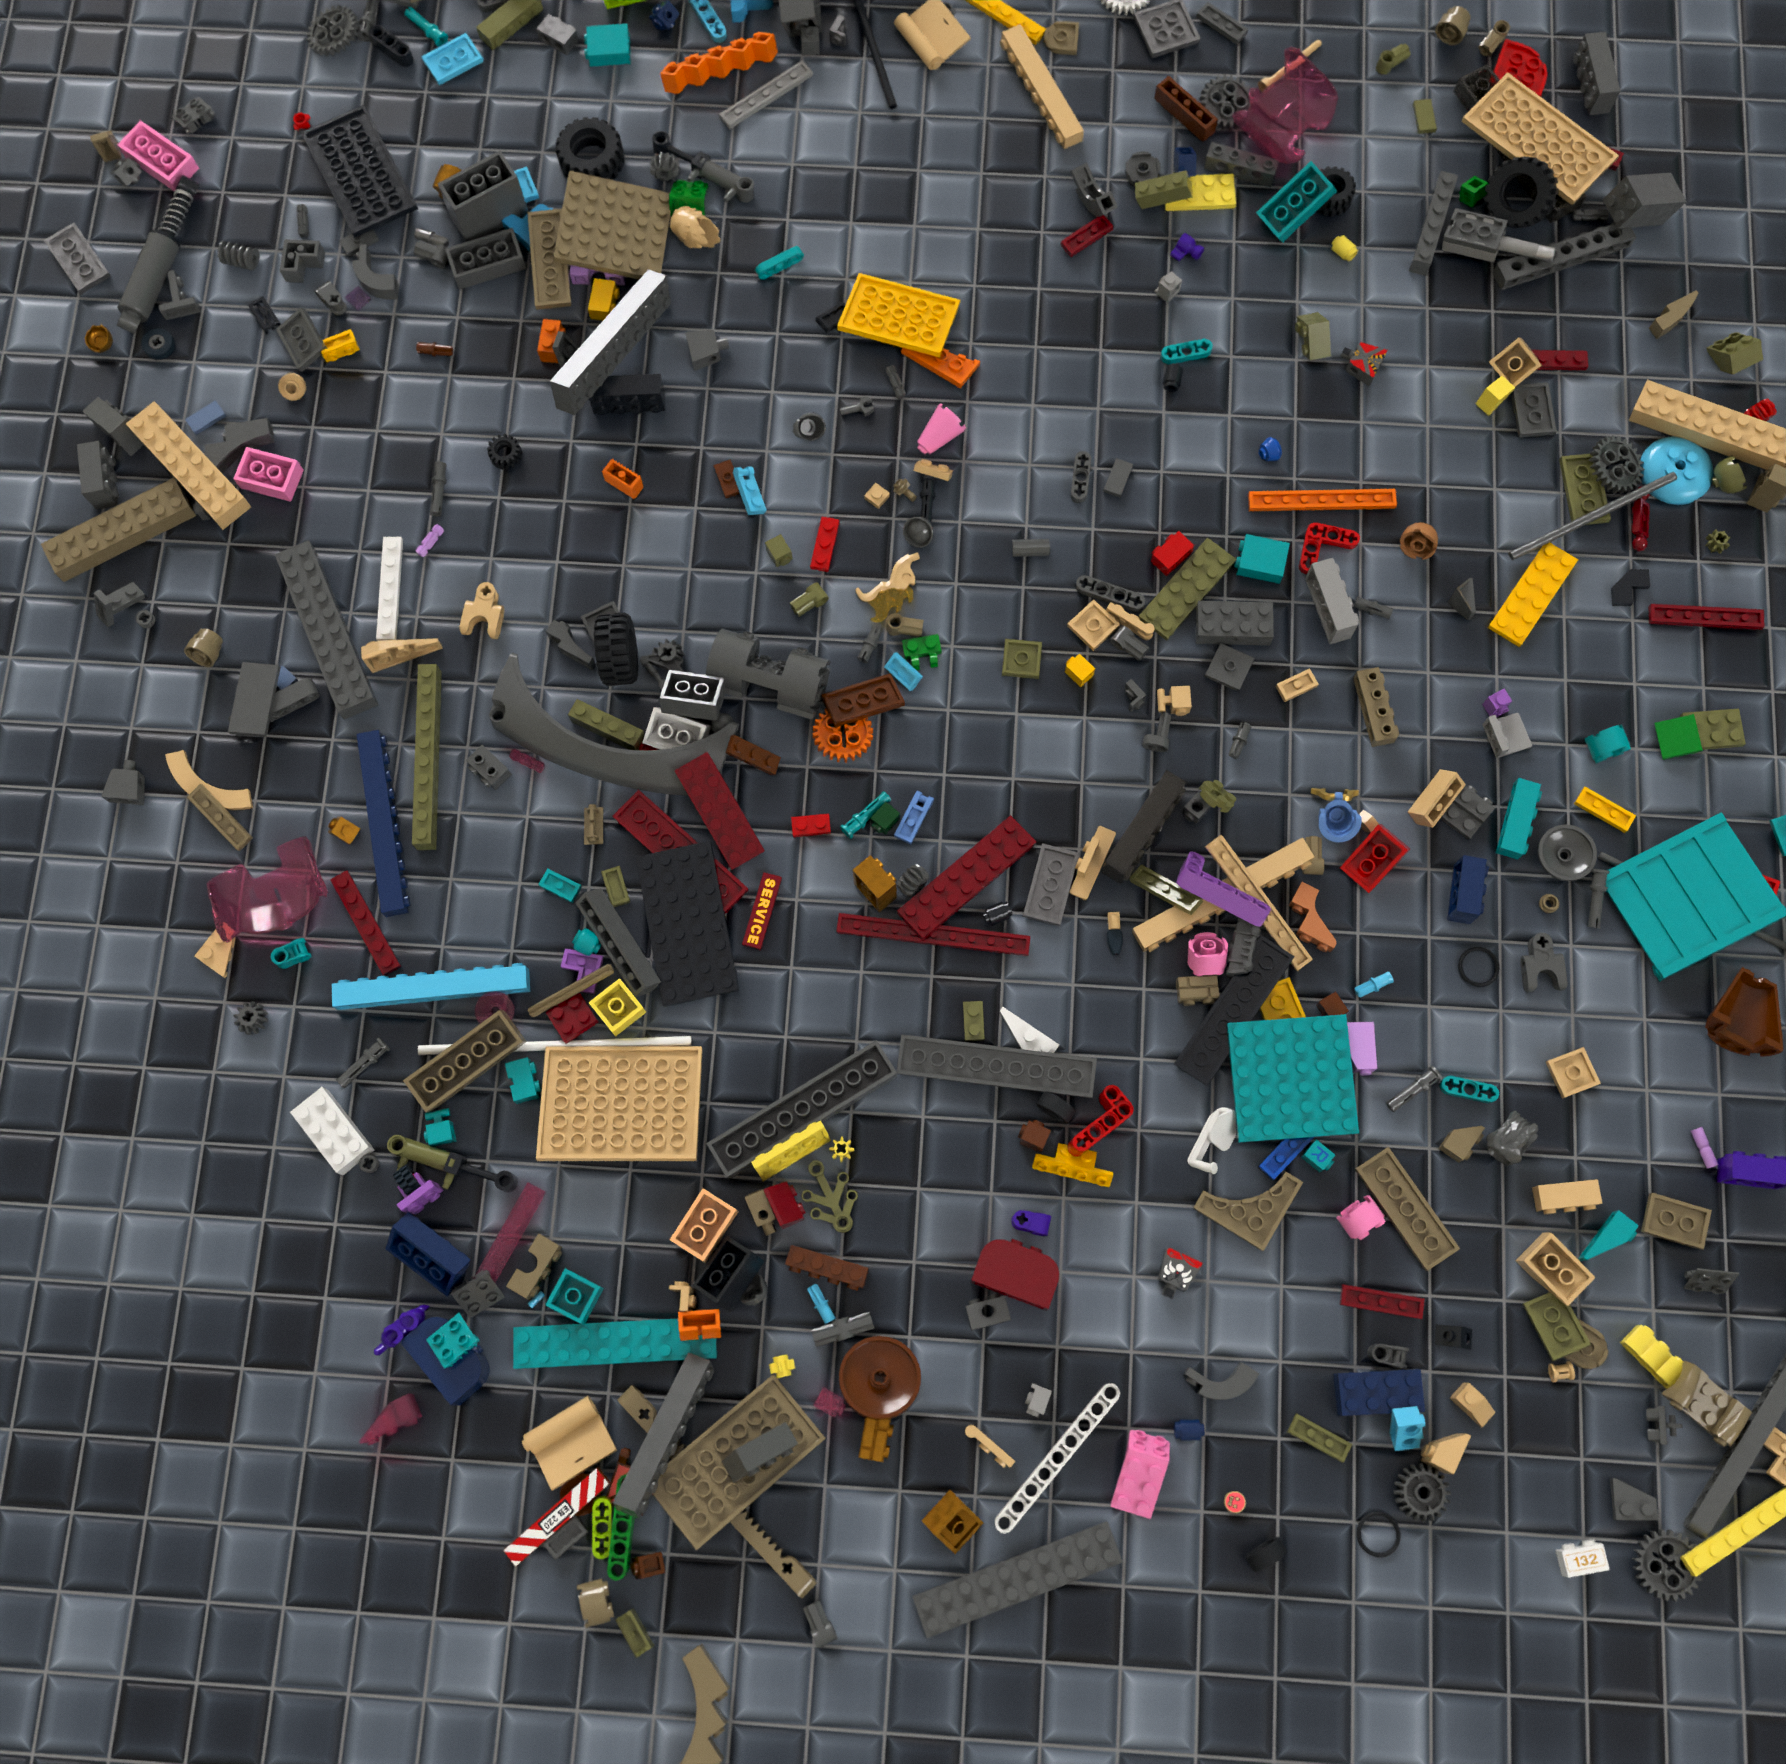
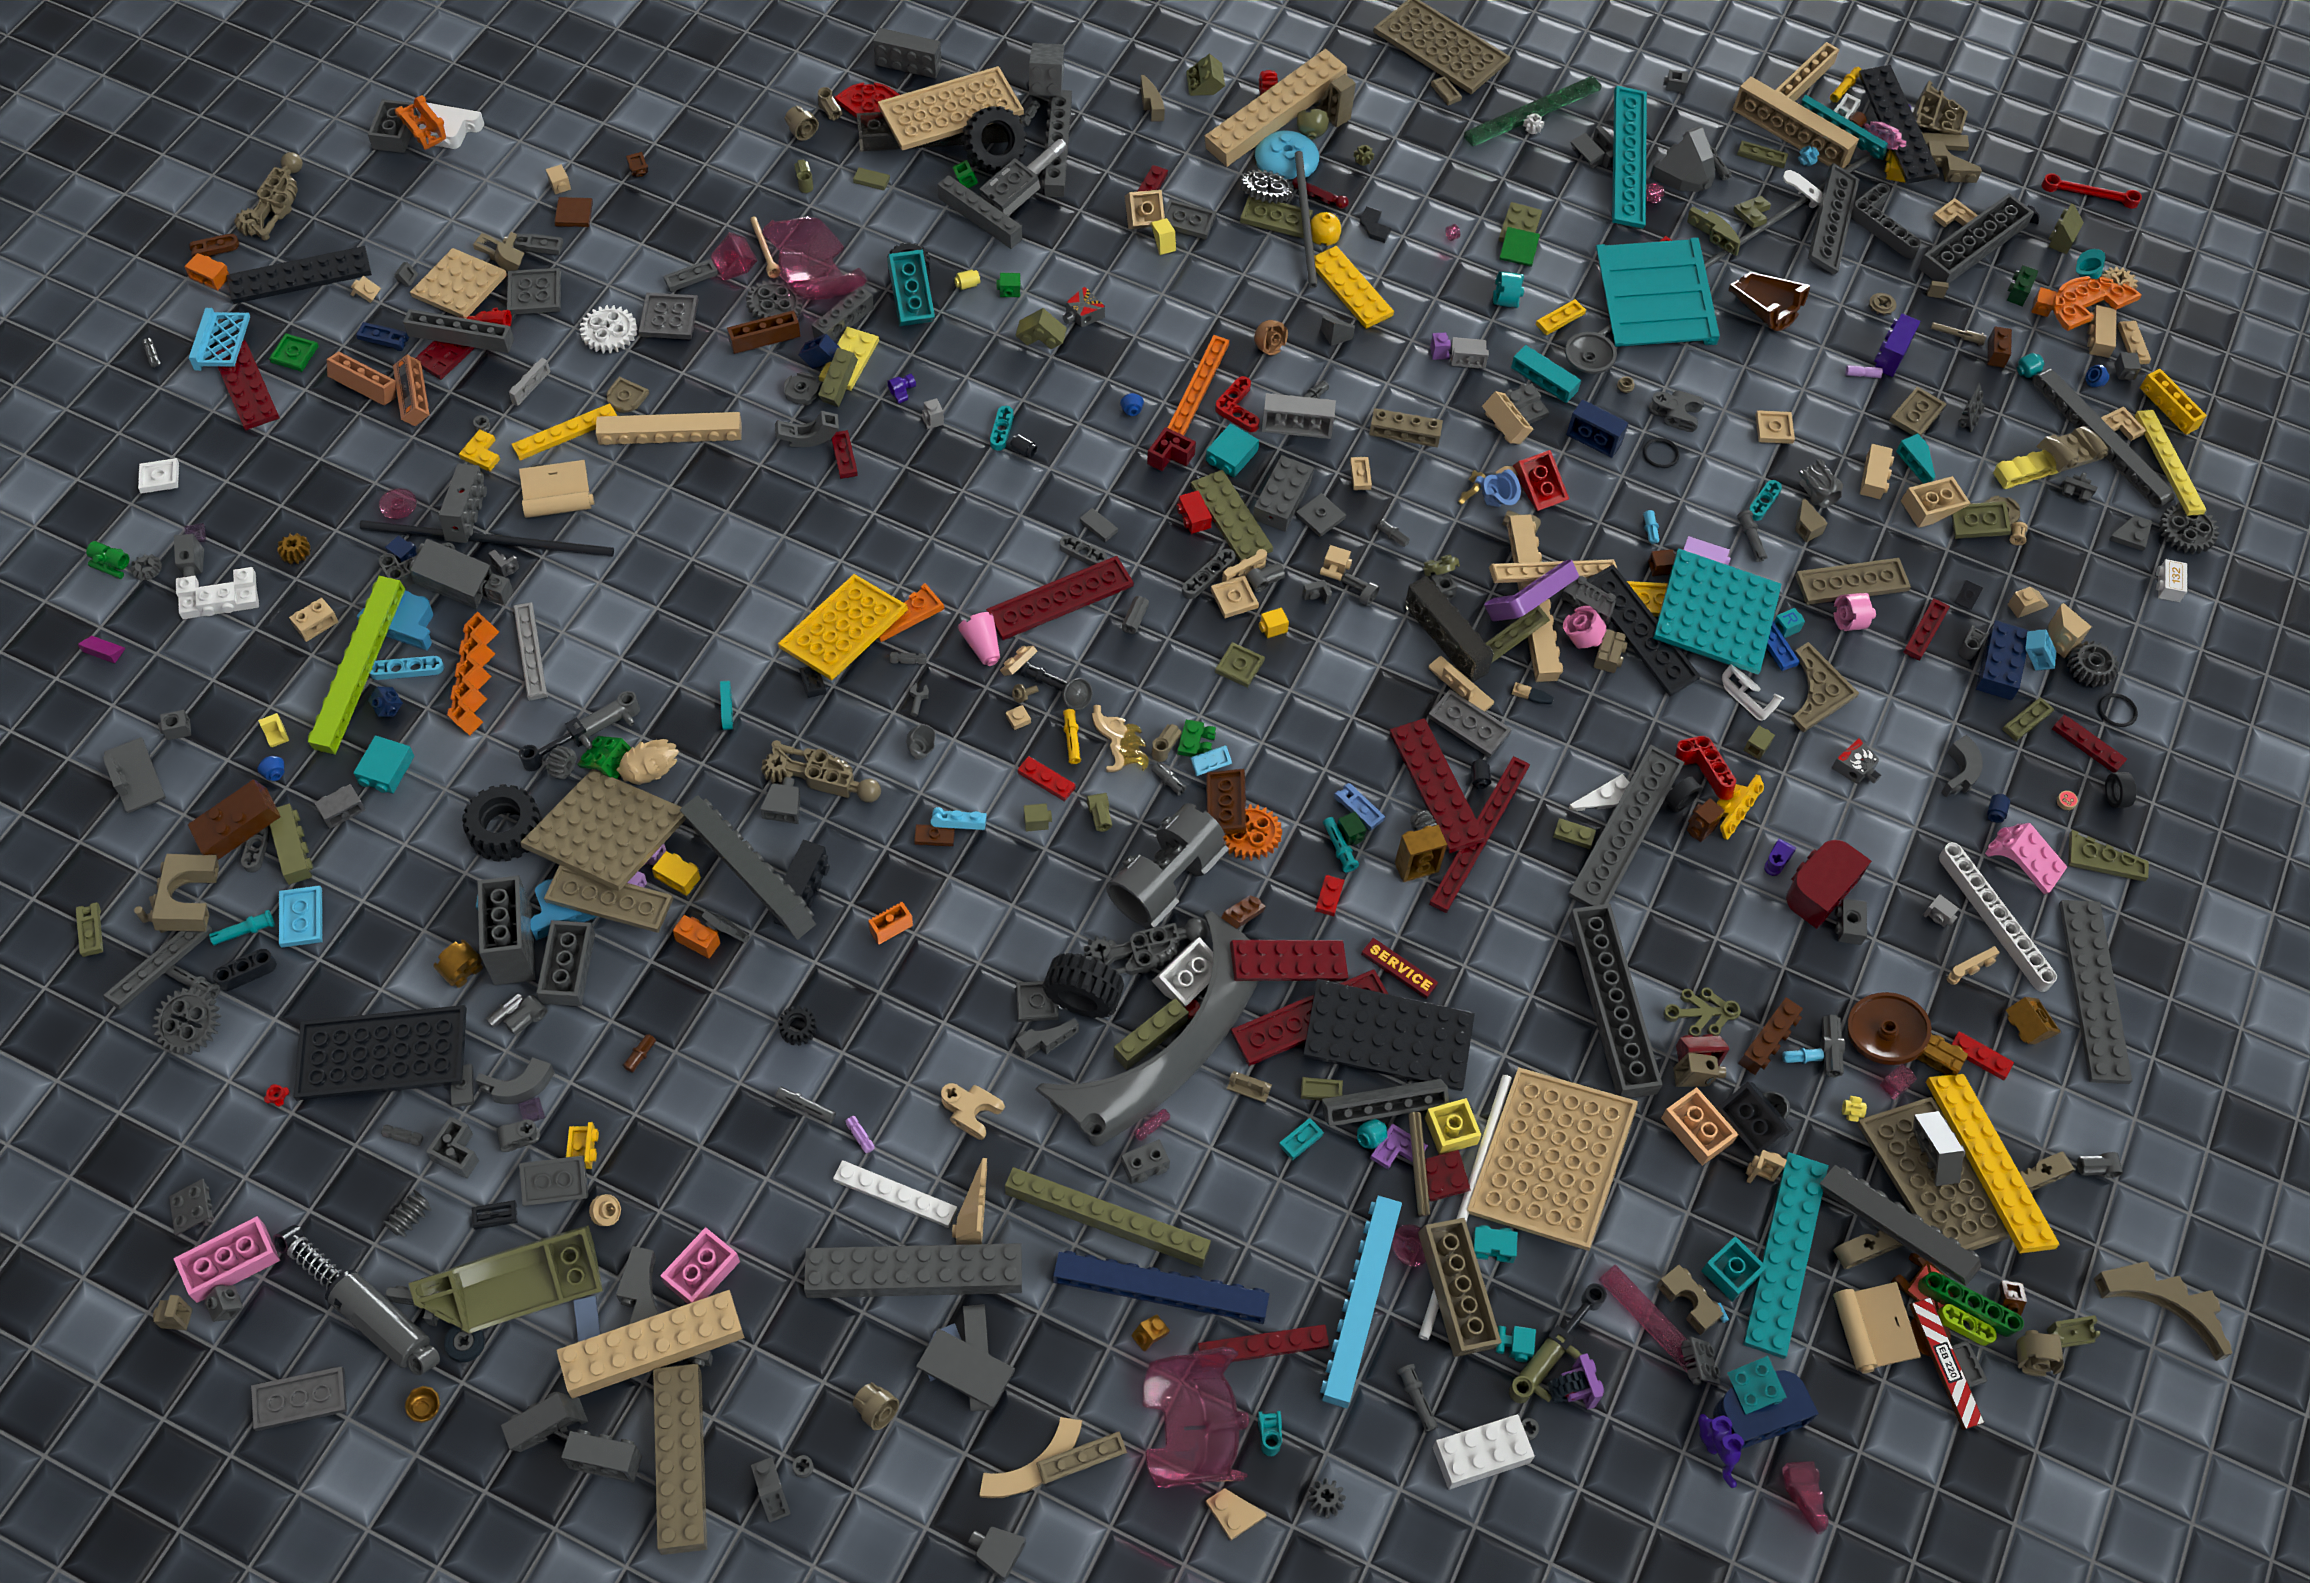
camera: 75 degrees left, 15 degrees down
(211, 350) = (512, 1282): none -> olive slope
(427, 1254) = (1650, 1392): dark blue brick -> none
(692, 695) = (1166, 933): dark grey brick -> none
(698, 1323) = (1799, 1159): orange piece -> none
(737, 331) = (779, 766): none -> dark tan arm
(767, 1510) = (1992, 1164): none -> yellow plate
(791, 1151) = (1651, 1022): light yellow plate -> none
(842, 1143) = (1661, 983): light yellow gear -> none
(879, 545) = (1071, 729): none -> yellow pin
(894, 1479) = (1984, 1056): none -> red plate
(1019, 477) = (1060, 597): none -> dark red plate
(1157, 1166) = (1759, 742): none -> olive brick
(1176, 1546) = (2093, 856): none -> olive wing
(1233, 499) = (1169, 447): none -> dark red brick
(1262, 46) = (733, 257): none -> clear pink slope
(1312, 927) = (1583, 548): nougat arch -> none
(1318, 1511) = (2089, 743): none -> dark red plate
(1358, 286) = (1009, 285): none -> green brick
(1594, 541) = (1325, 228): none -> yellow cylinder
(1598, 888) = (1629, 346): dark grey pin -> none
(1661, 665) = (1452, 232): none -> clear pink bush
(1706, 616) = (1423, 189): dark red plate -> none

